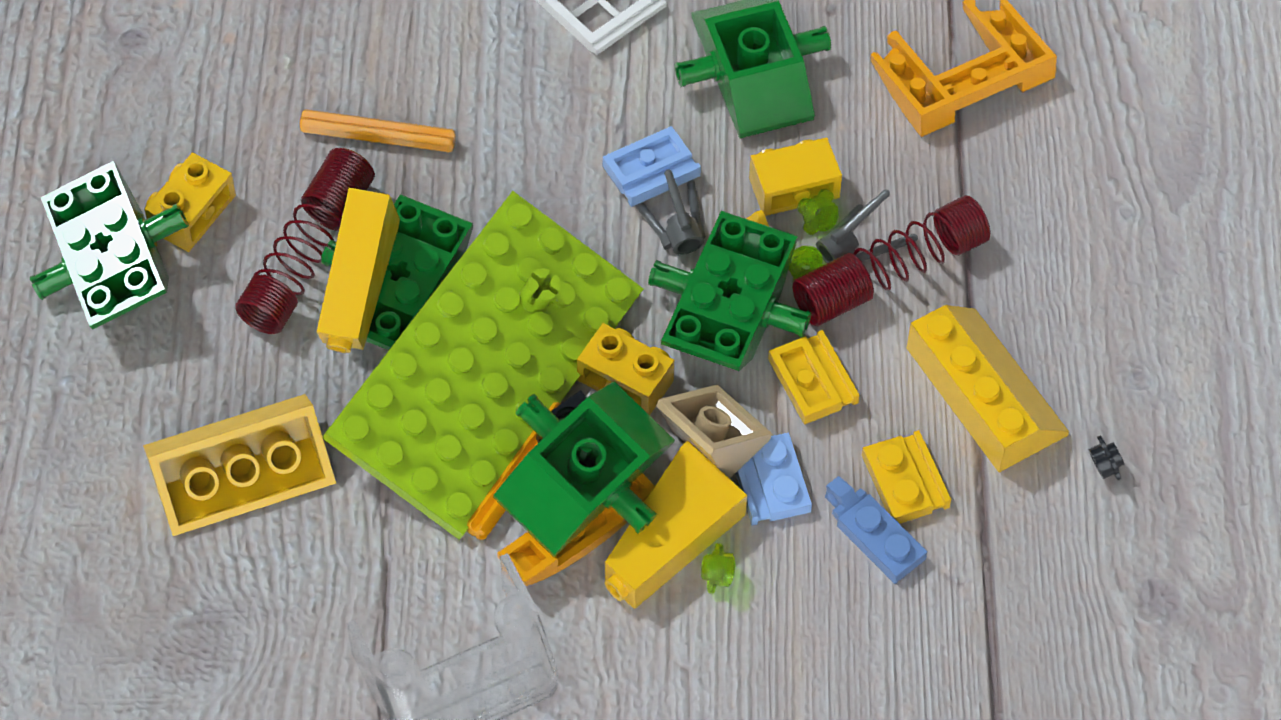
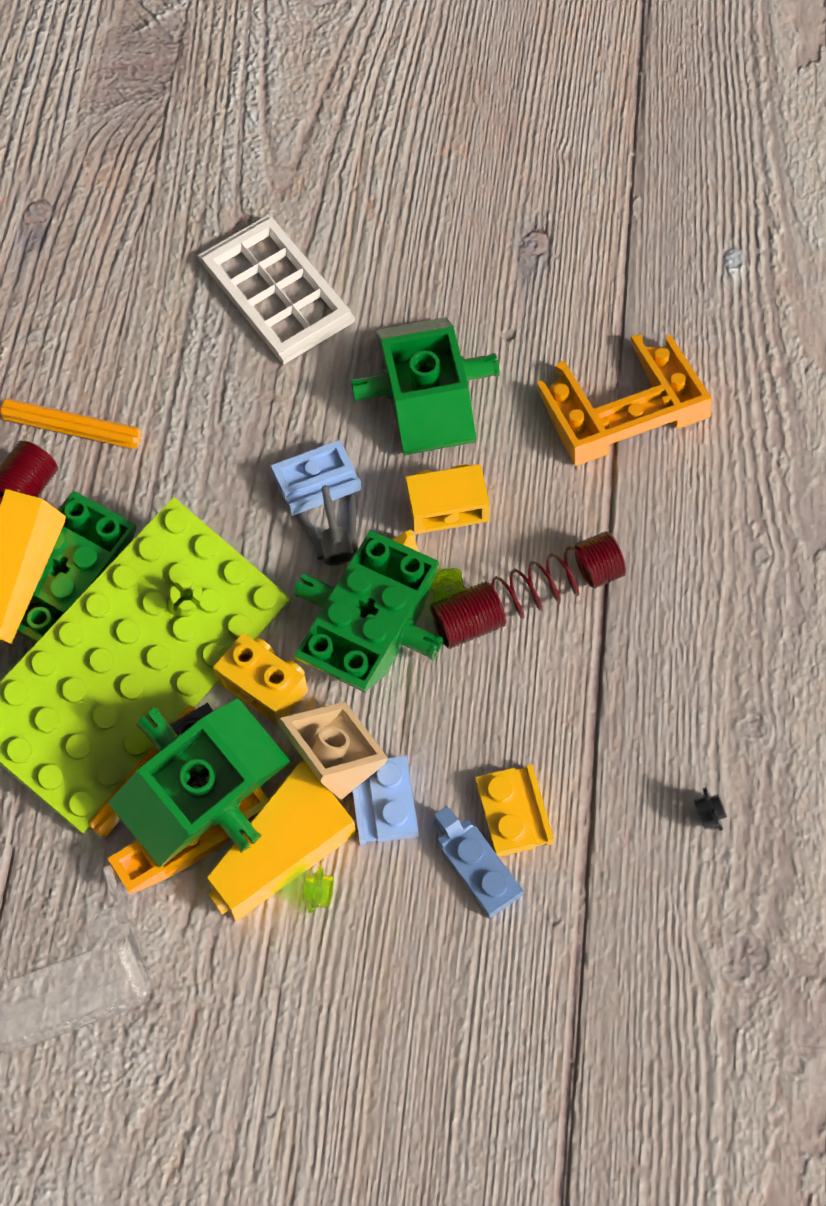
camera: 10 degrees right, 5 degrees up
(813, 377) = (438, 701): yellow plate -> none
(825, 218) = (470, 543): clear neon green plate -> none
(842, 239) = (483, 566): dark grey plant -> none
(983, 385) = (602, 722): yellow slope -> none

